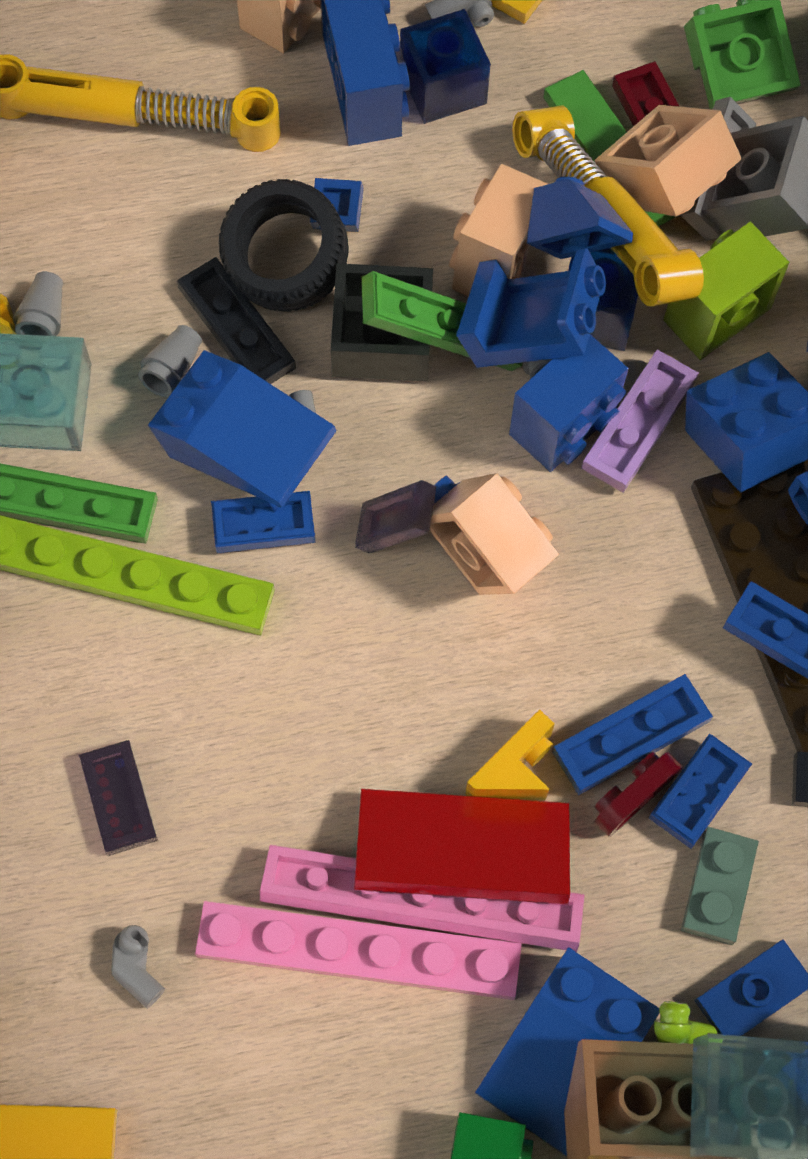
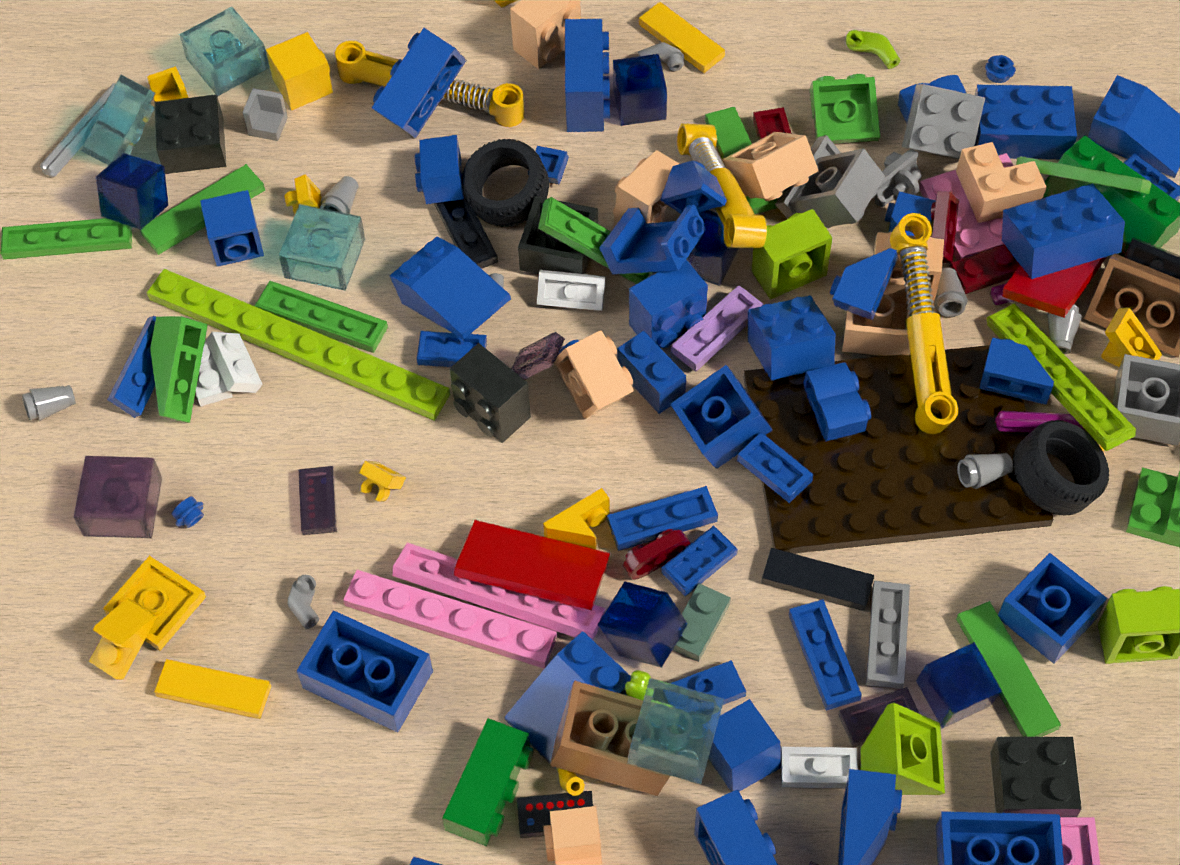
camera: 15 degrees right, 10 degrees down
(121, 109) = (418, 82): none -> blue brick
(169, 361) = (413, 241): light grey cone -> none
(182, 240) = (439, 169): none -> blue brick
(208, 744) = (383, 477): none -> yellow tile
(257, 1069) = (365, 671): none -> blue brick
(340, 587) = (490, 393): none -> pearl dark grey brick
(417, 397) = (571, 290): none -> white plate
(568, 506) = (652, 371): none -> blue brick
(650, 915) = (643, 624): none -> clear blue head
(685, 565) = (720, 416): none -> blue brick

